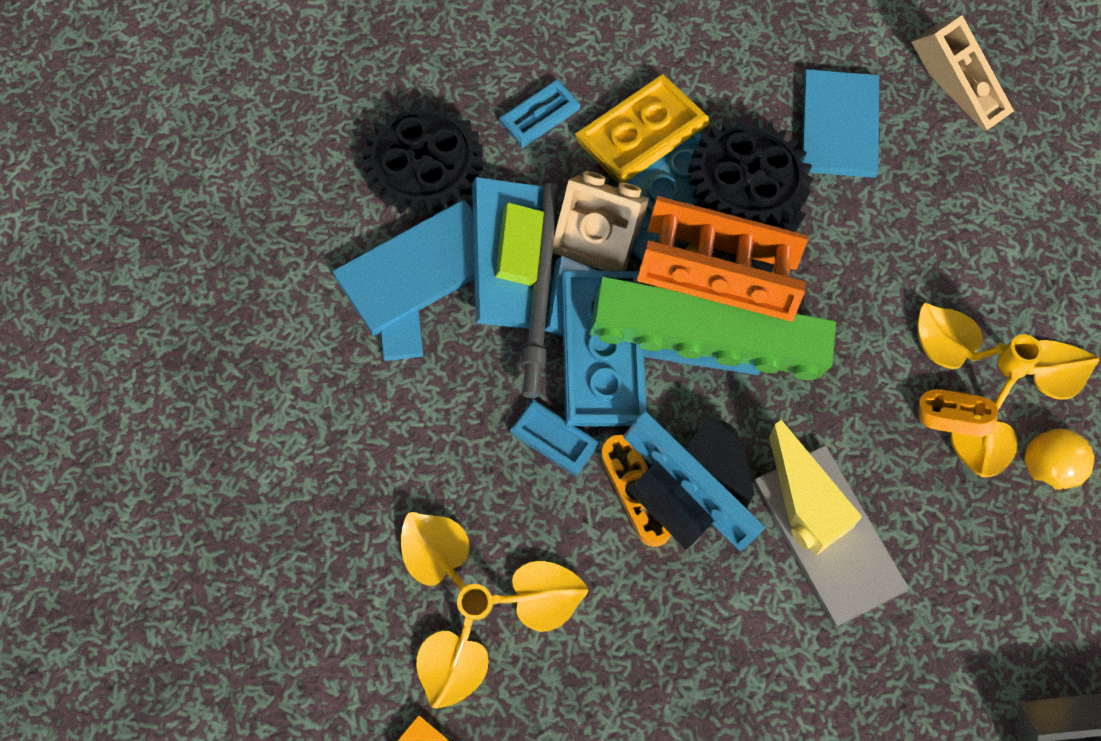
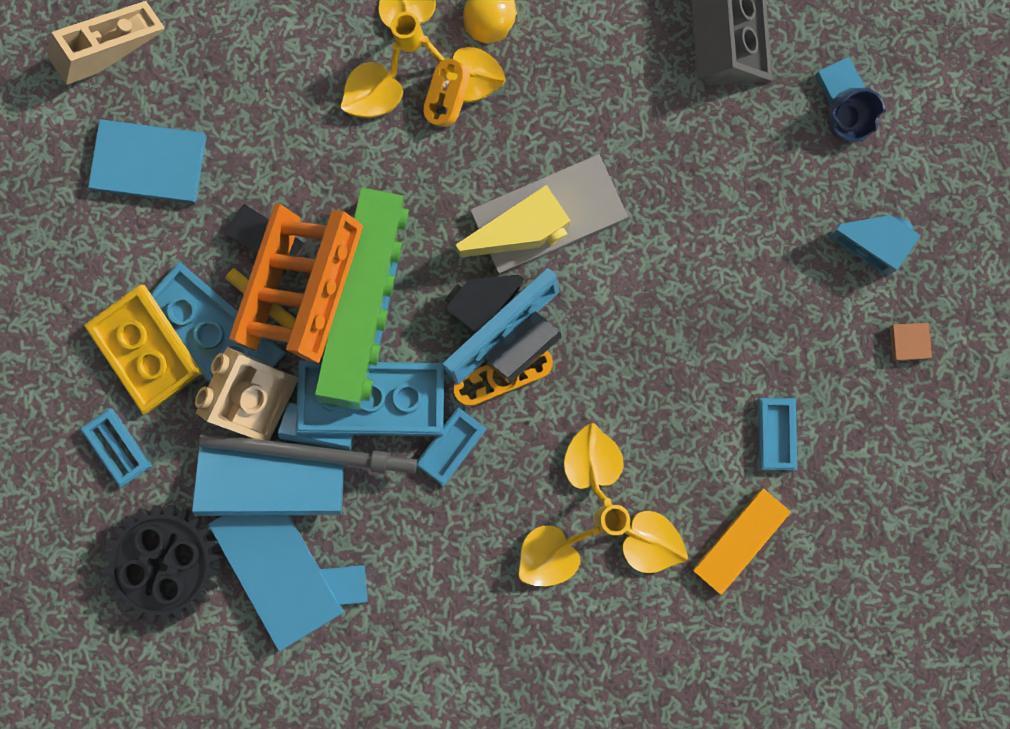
camera: 90 degrees left, 15 degrees up
(519, 244) = (264, 471): lime tile -> none
(750, 173) = (175, 239): black gear -> none

